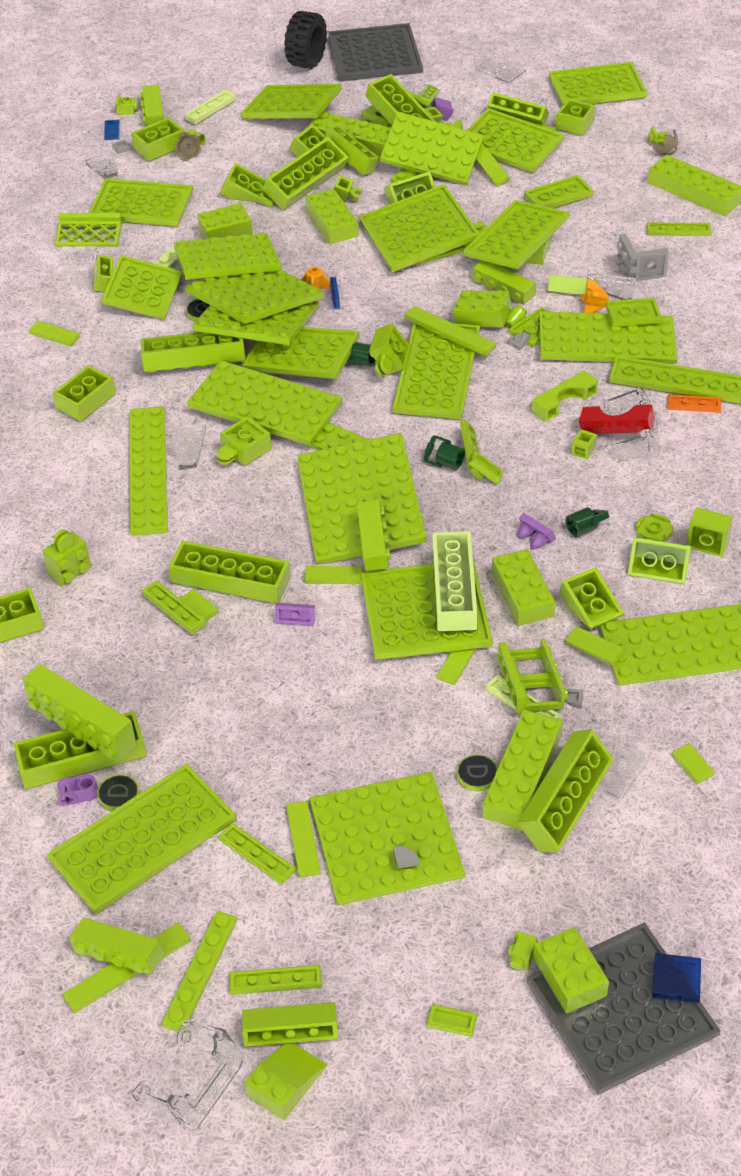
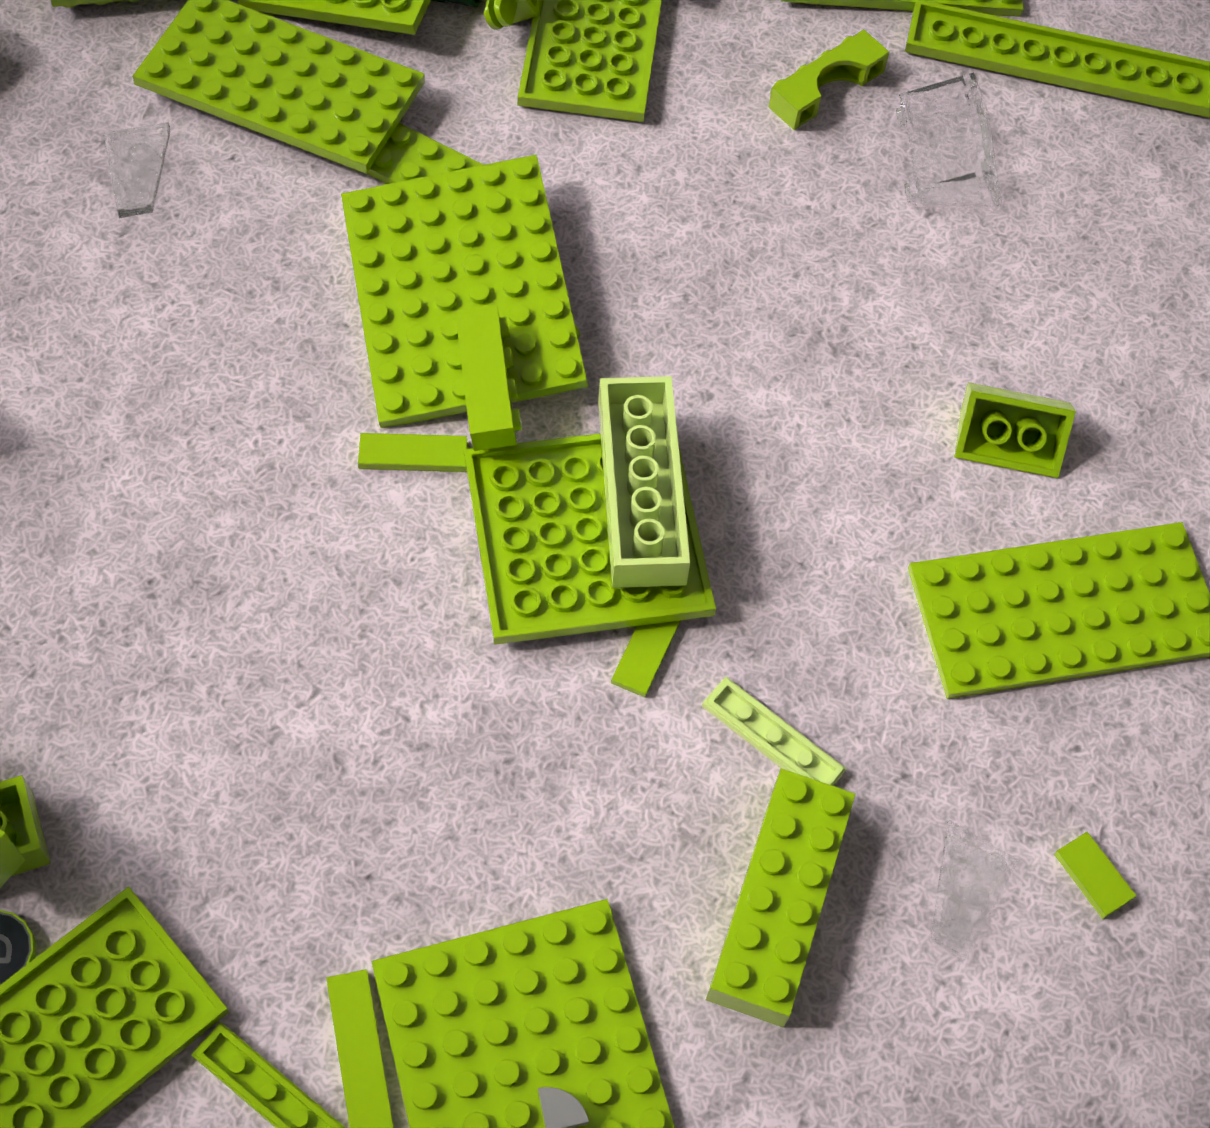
camera: 10 degrees left, 15 degrees up
(148, 471) = (59, 221): lime plate -> none
(174, 607) = (107, 524): lime plate -> none
(200, 604) = (155, 518): lime tile -> none
(230, 571) = (213, 448): lime brick -> none
(243, 442) = (239, 164): lime brick -> none
(295, 614) = (340, 540): medium lavender tile -> none
(447, 454) = (621, 198): dark green piece -> none
(470, 445) = (664, 188): lime tile -> none
(476, 772) = (693, 898): black tile -> none
(485, 467) = (691, 227): lime tile -> none
(518, 683) = (766, 696): lime window -> none
(523, 587) = (768, 487): lime brick -> none
(541, 532) = (797, 371): medium lavender tile -> none
(565, 791) = (866, 956): lime brick -> none
(575, 698) = (868, 726): light grey tile -> none
(583, 444) = (866, 181): lime brick -> none
(585, 520) = (877, 344): dark green piece -> none
(590, 598) = (894, 517): lime slope -> none
(595, 646) = (904, 617): lime tile -> none
(633, 421) = (963, 138): red arch -> none
(654, 528) = (993, 367): lime tile -> none
(694, 403) = (1056, 99): orange tile -> none
(709, 531) = (1104, 375): lime brick -> none

